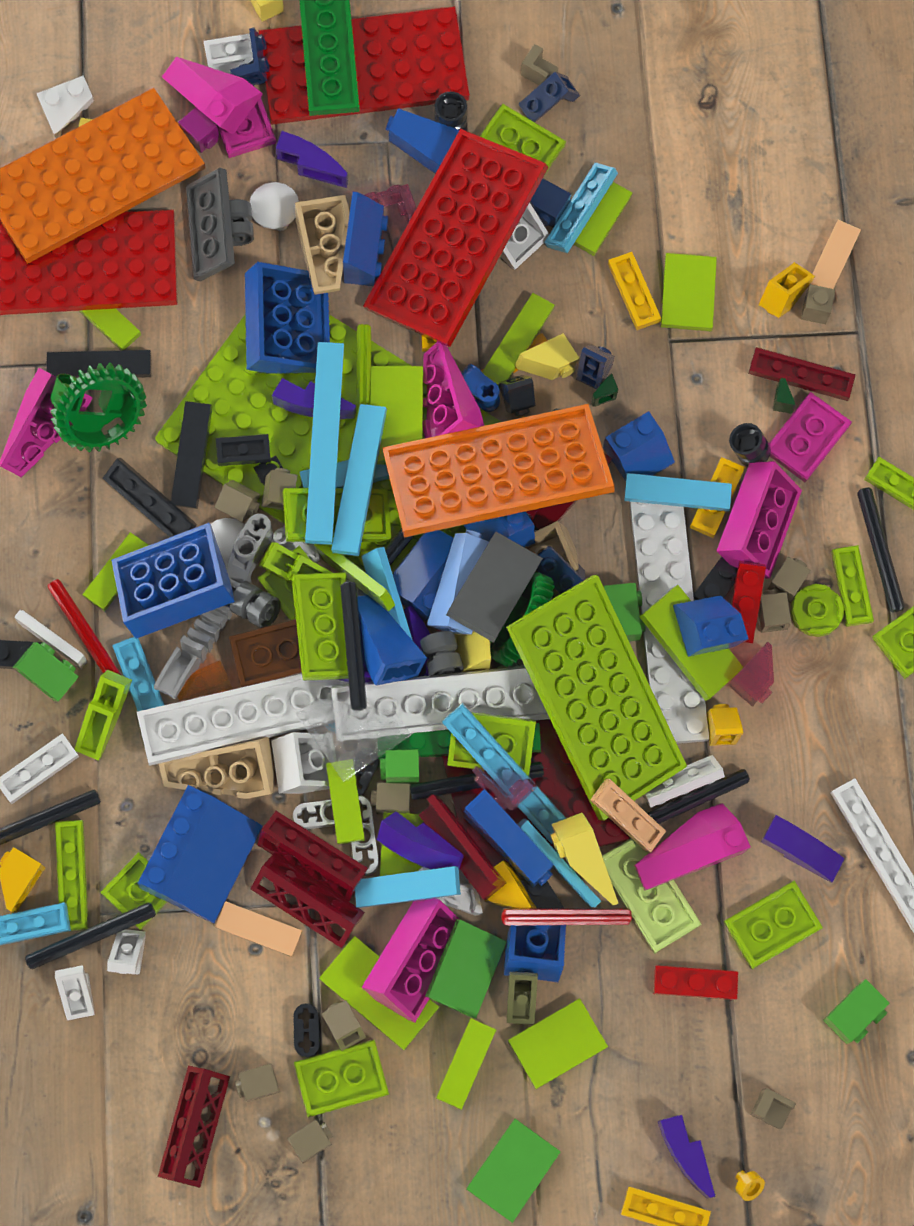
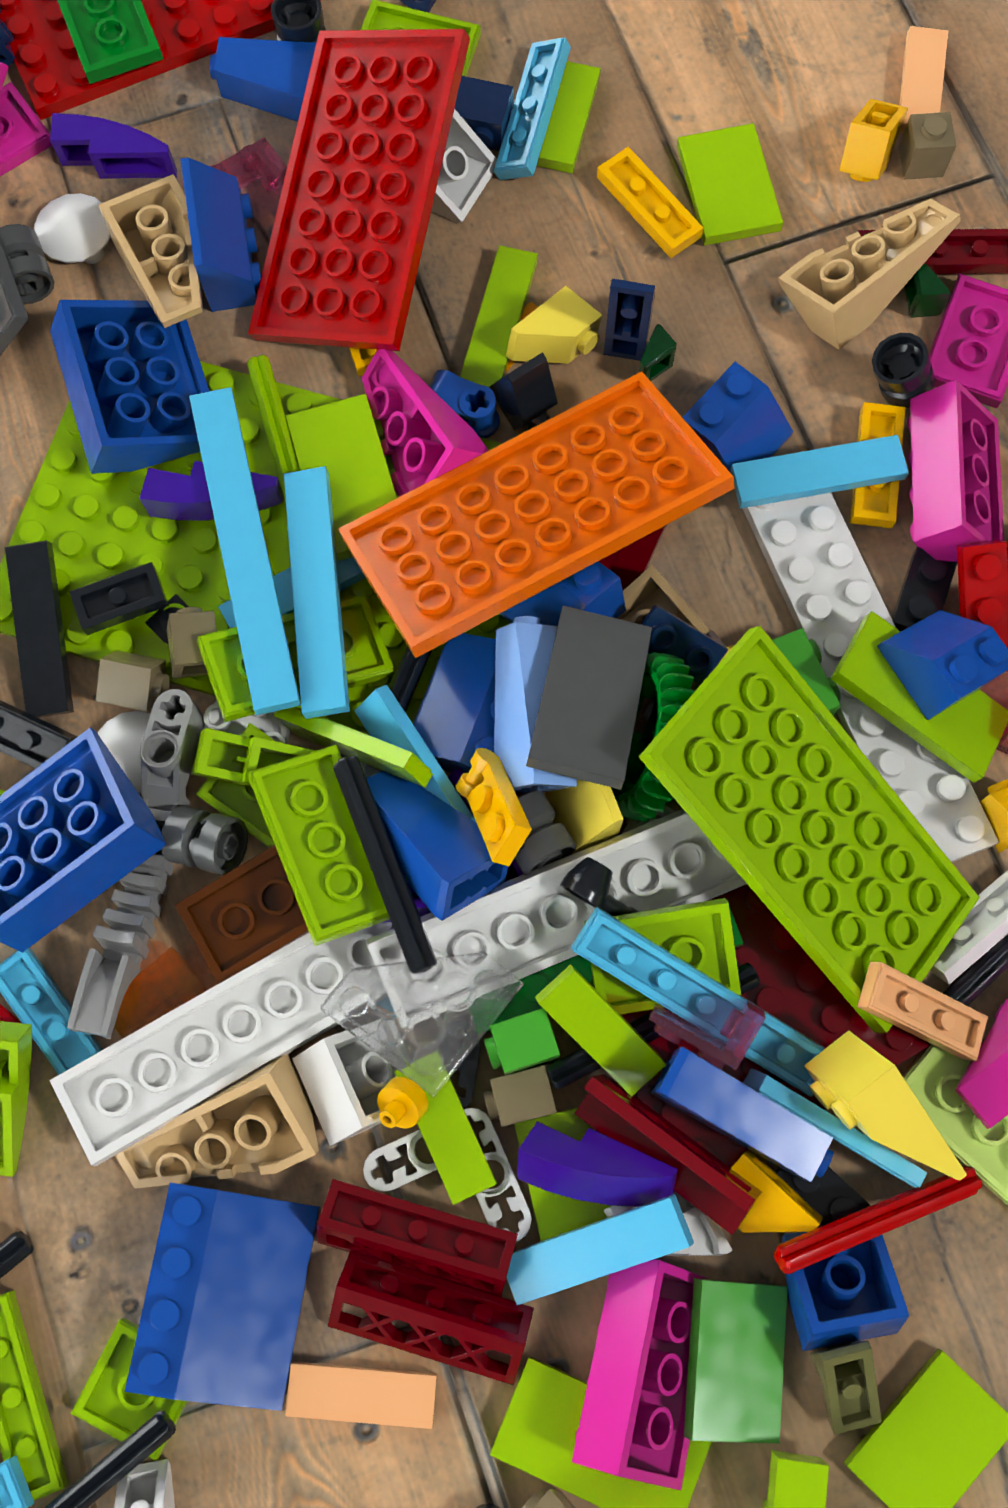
camera: 10 degrees left, 0 degrees up
(325, 779) = (401, 1103): none -> yellow tile
(423, 631) = (494, 806): none -> yellow plate
(445, 771) = (600, 1030): none -> lime tile
(464, 690) = (591, 884): none -> black bar
(743, 379) = (852, 284): none -> tan wedge

